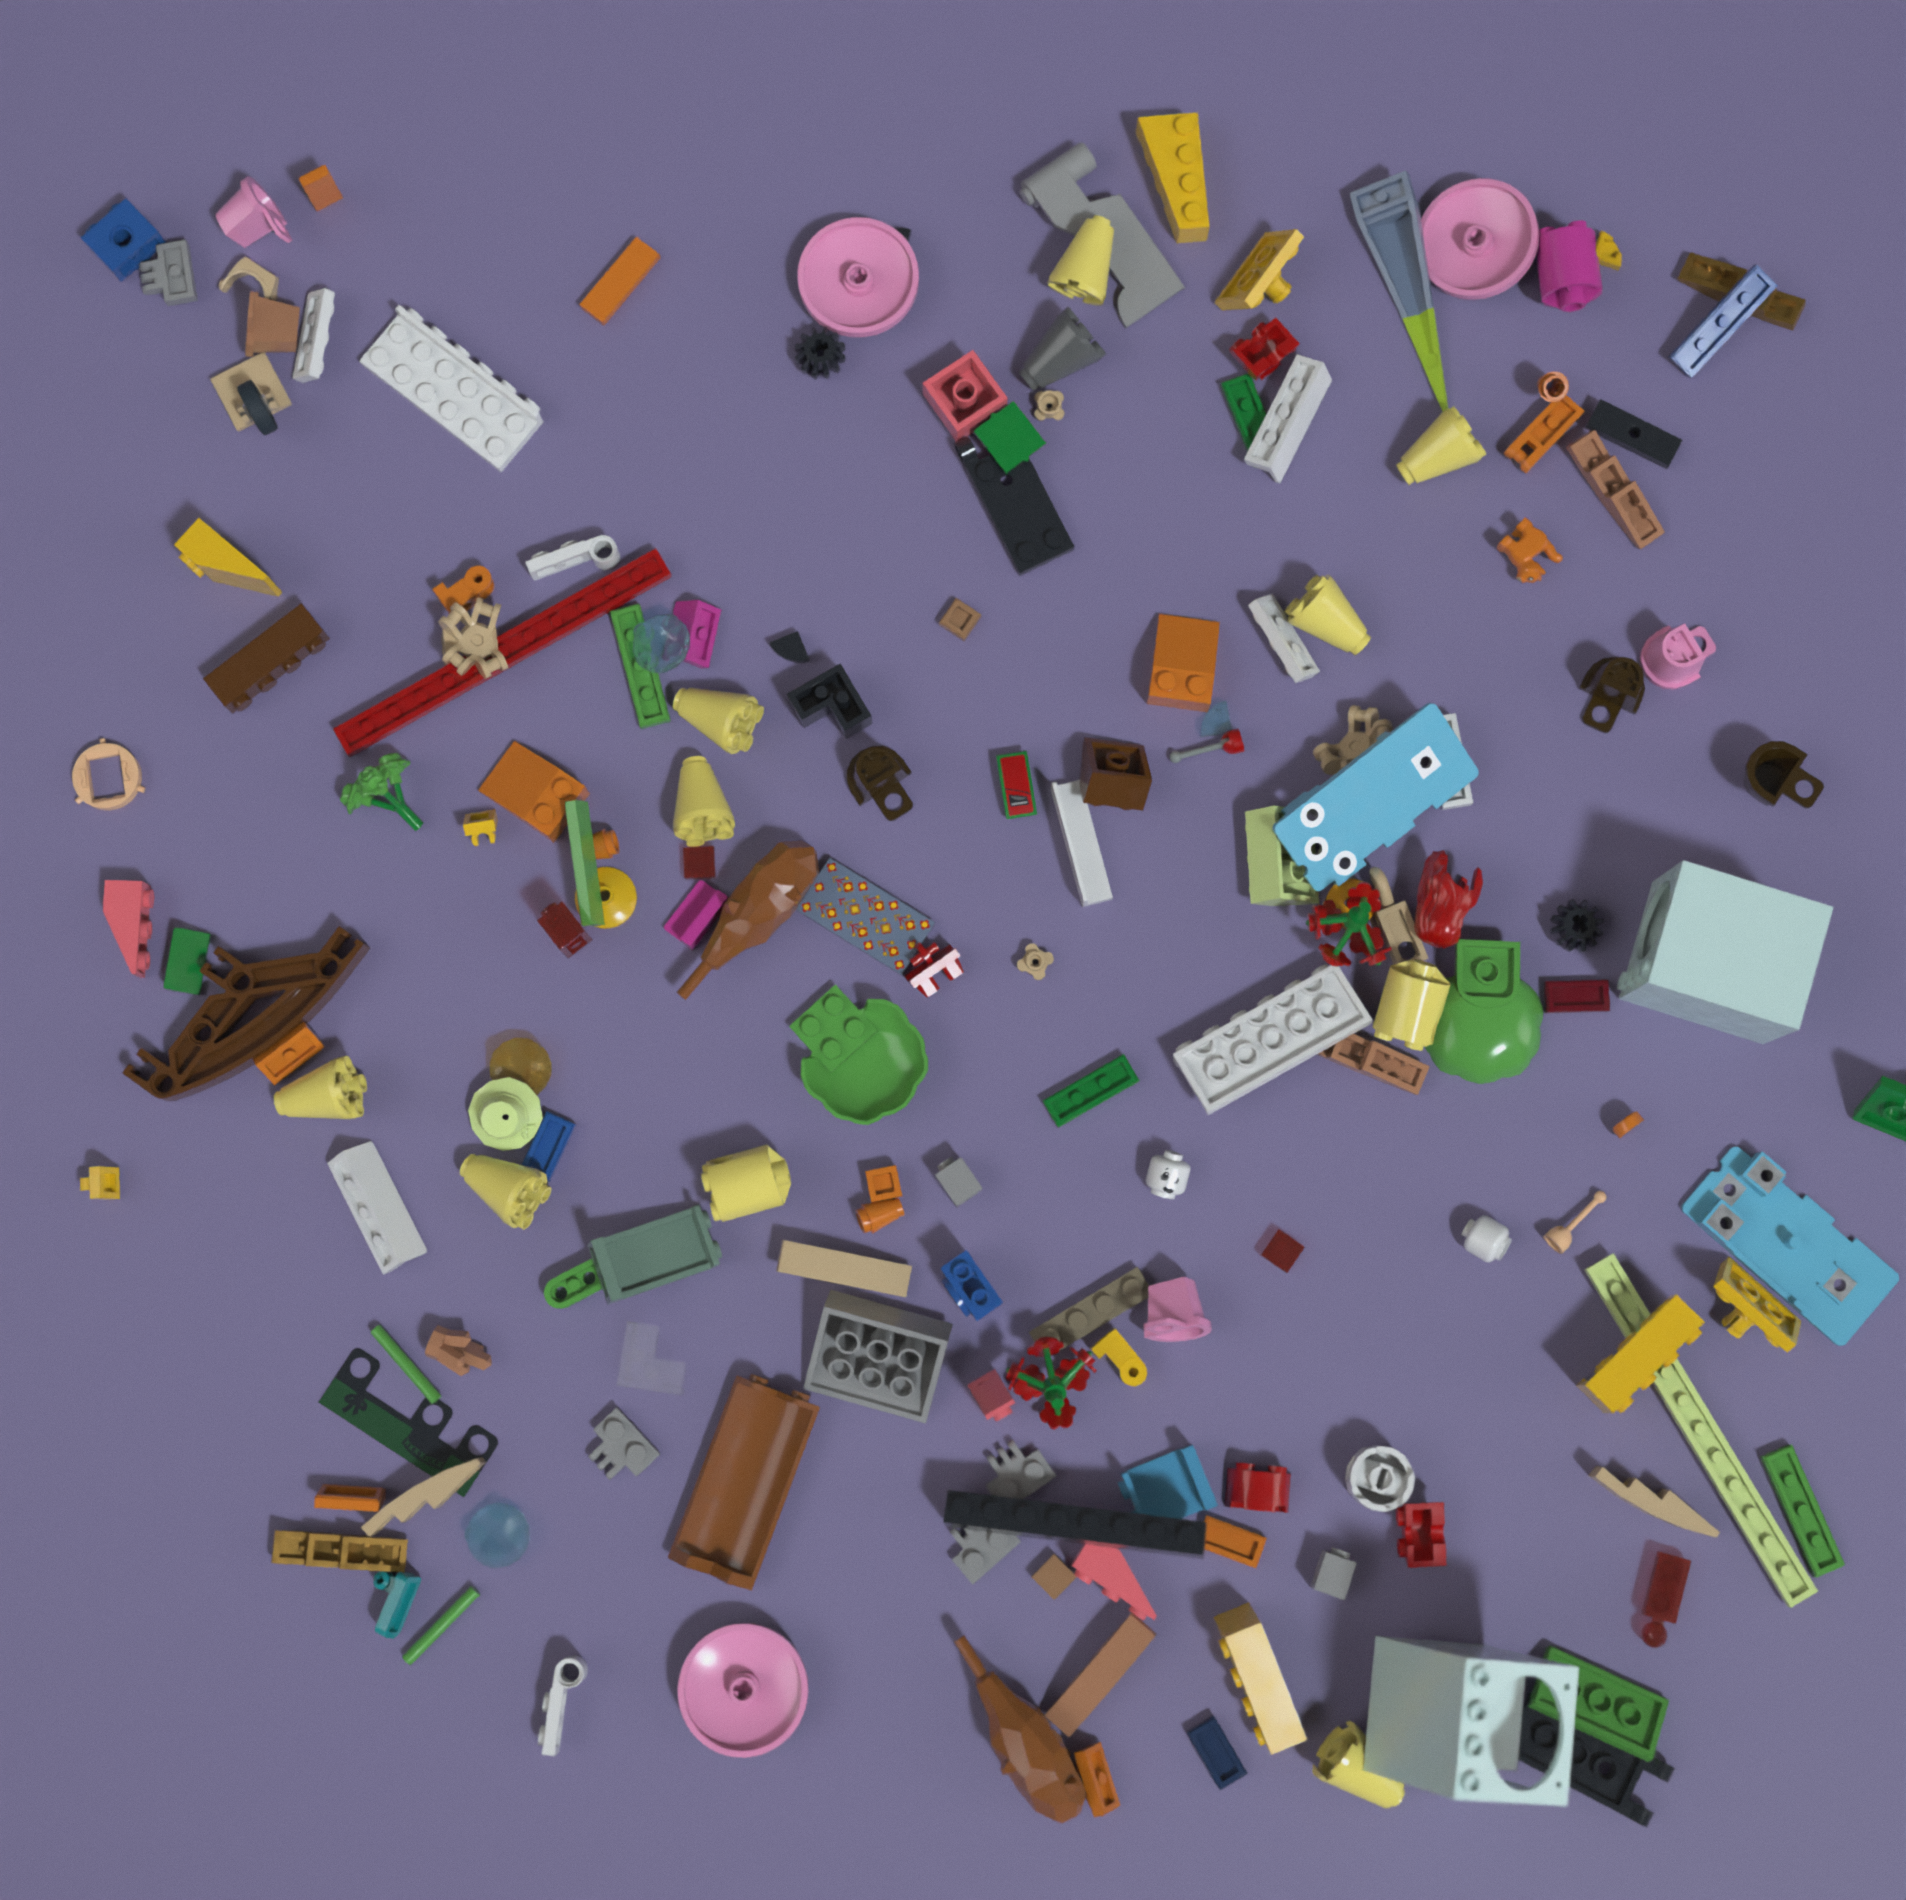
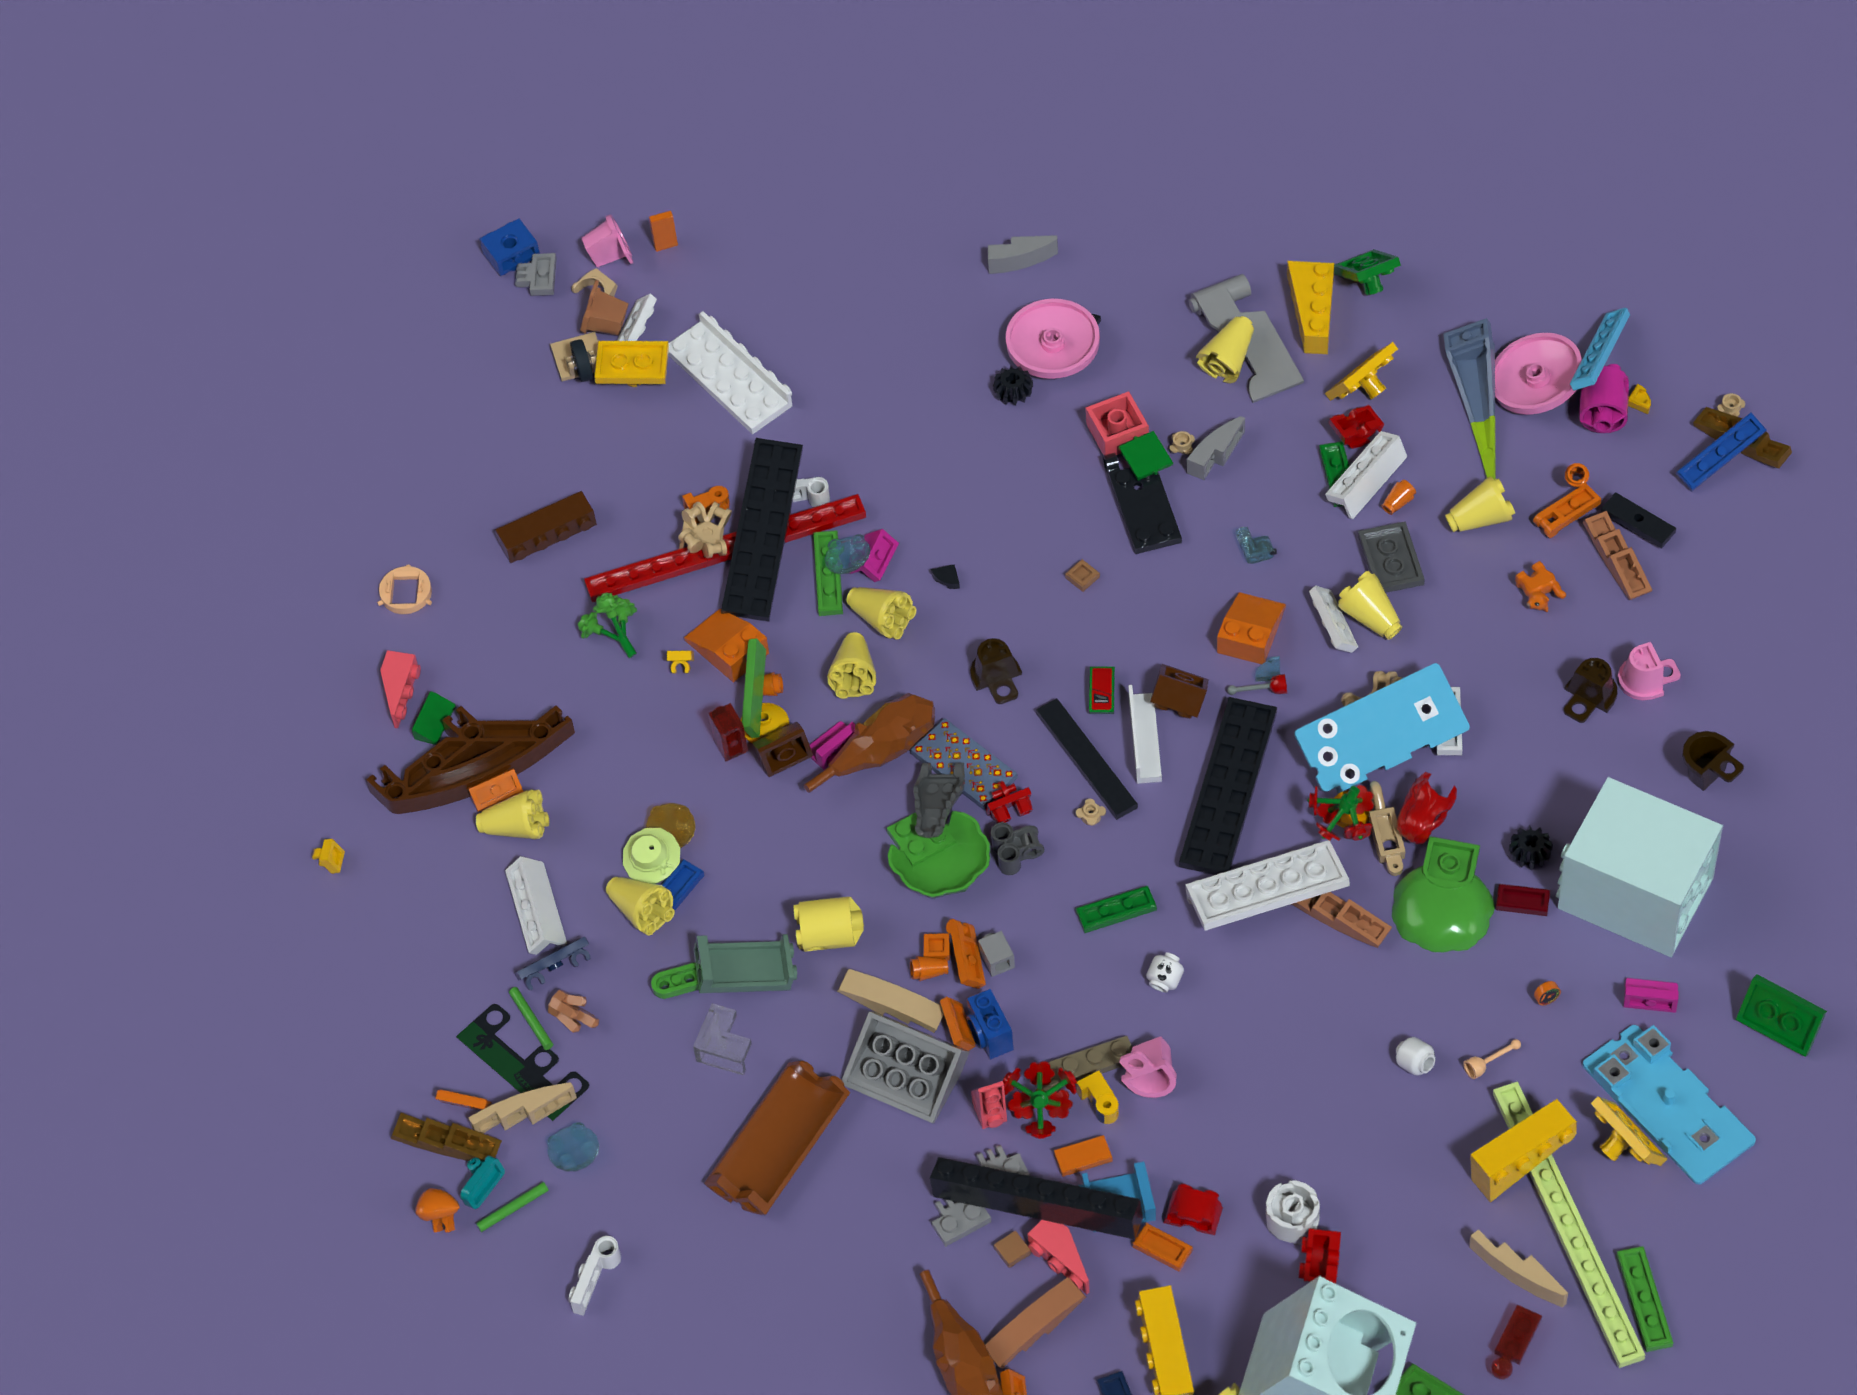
camera: 15 degrees right, 25 degrees down
(212, 555) = (531, 456): yellow slope -> none
(323, 400) = (631, 362): none -> yellow plate
(351, 1652) = (439, 1207): none -> orange piece
(415, 1284) = (553, 961): none -> dark blue plate
(545, 624) = (762, 529): none -> black plate
(620, 281) = (872, 322): orange tile -> none
(622, 1445) = (686, 1102): light grey hinge -> none
(636, 937) = (783, 748): none -> reddish brown slope
(699, 863) = (842, 709): clear red tile -> none
(743, 1690) = (742, 1283): bright pink dish -> none
(792, 149) = (1021, 253): none -> light grey slope
(832, 694) = (968, 606): black brick -> none
(843, 983) = (935, 798): none -> dark grey animal
(922, 1187) = (966, 953): none -> orange plate
(930, 1288) = (957, 1023): none -> orange tile
(954, 1027) = (1015, 846): none -> dark grey piece
(1015, 884) = (1087, 759): none -> black tile
(1061, 352) = (1197, 406): dark grey cone -> none
(1093, 409) = (1215, 448): none -> light grey slope
(1114, 1436) = (1083, 1155): none -> orange tile
(1166, 549) = (1255, 549): none -> clear light blue piece
(1197, 899) = (1228, 787): none -> black plate
(1240, 111) = (1366, 269): none -> green plate
(1272, 872) = (1291, 773): yellowish green slope -> none
(1282, 1251) = (1247, 1044): clear red tile -> none
(1333, 445) = (1399, 496): none -> orange cone
(1333, 1573) = (1241, 1279): light grey brick -> none
(1339, 535) = (1391, 556): none -> dark grey plate
(1411, 1003) = (1383, 874): light yellow cylinder -> none
(1555, 197) = (1600, 349): none -> medium azure tile
(1724, 237) = (1731, 400): none -> tan plate
(1748, 1101) = (1651, 995): none -> dark pink panel

